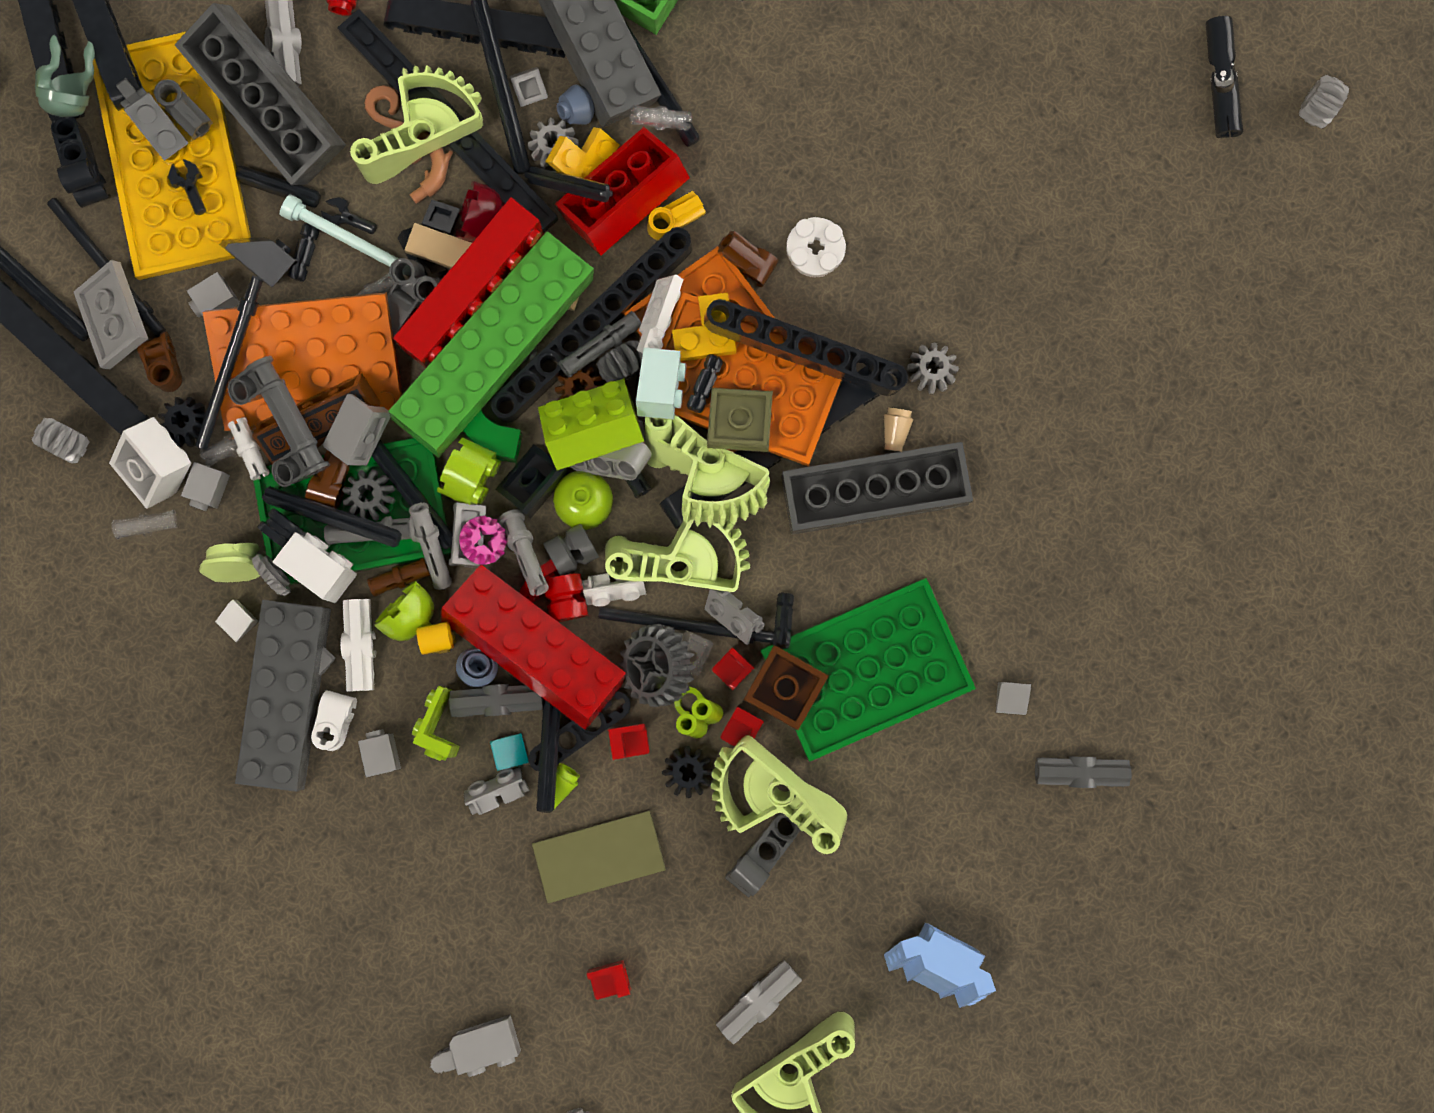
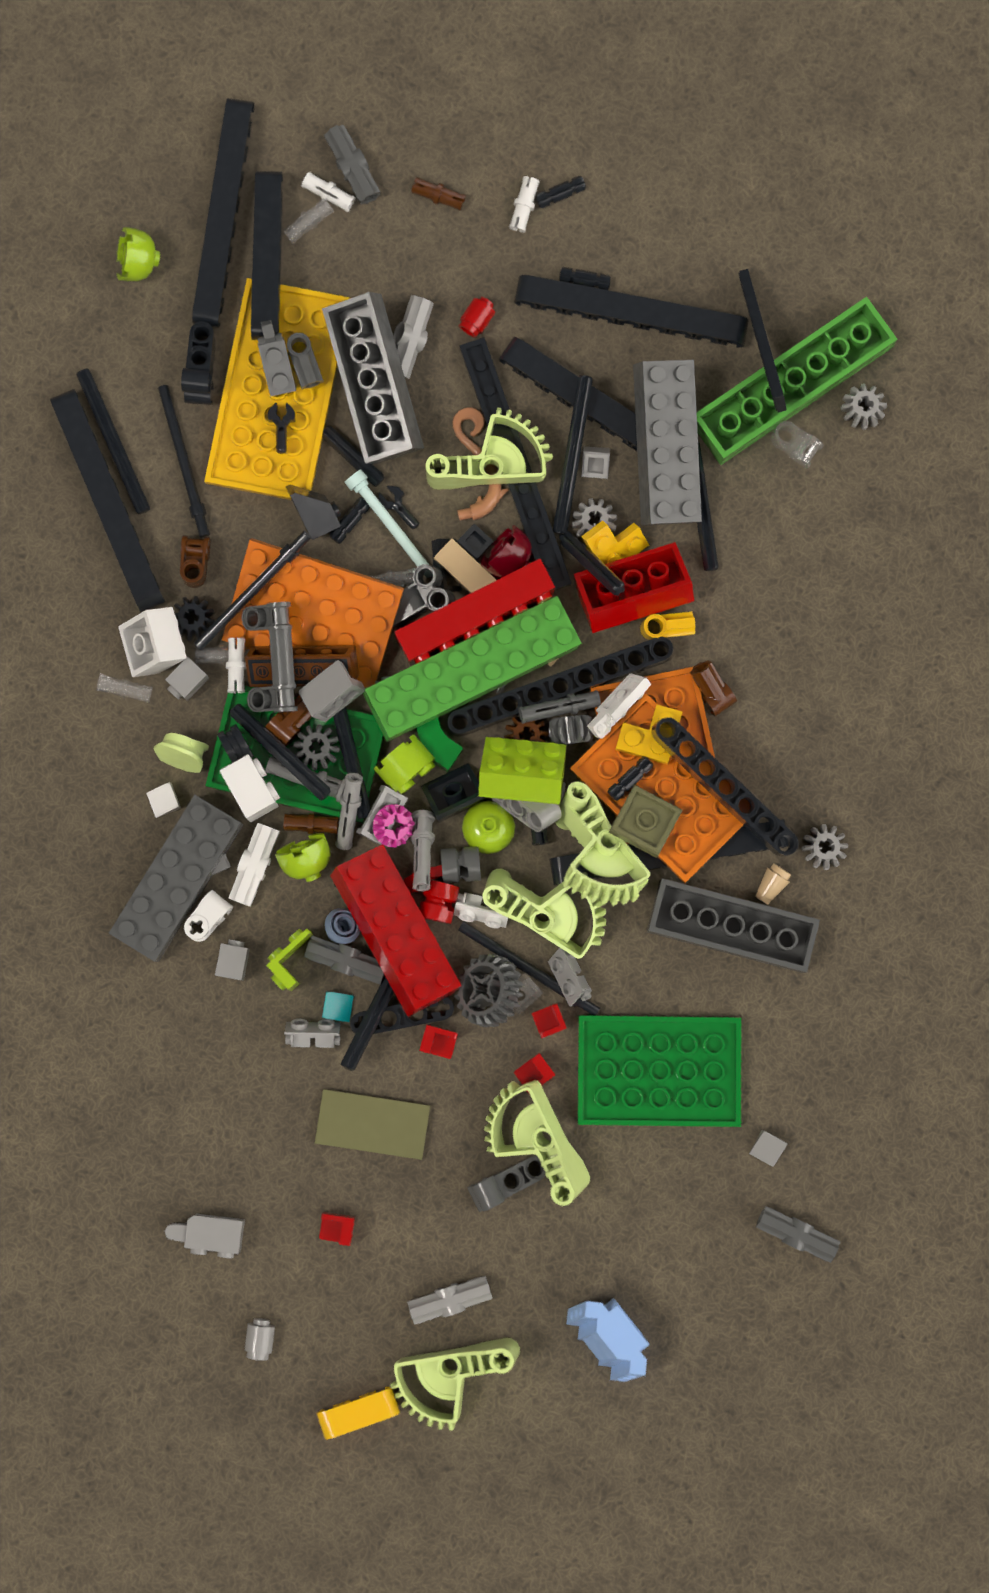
camera: 25 degrees right, 0 degrees up
(60, 440) = (87, 590): light grey gear -> none
(65, 93) = (214, 307): sand green hair -> none
(110, 315) = (171, 505): light grey plate -> none
(211, 295) = (259, 525): light grey brick -> none
(271, 574) = (211, 777): light grey gear -> none
(435, 638) = (320, 888): yellow piece -> none
(565, 782) = (373, 1051): lime cone -> none
(576, 106) = (627, 498): sand blue cone -> none
(659, 383) = (593, 762): light aqua brick -> none
(660, 117) = (692, 541): clear pin -> none
(677, 774) = (466, 1087): black gear -> none
(703, 714) = (509, 1047): lime piece -> none
(783, 620) = (608, 1000): black axle -> none
(785, 687) = (585, 1055): reddish brown brick -> none
(830, 237) = (770, 687): white plate -> none

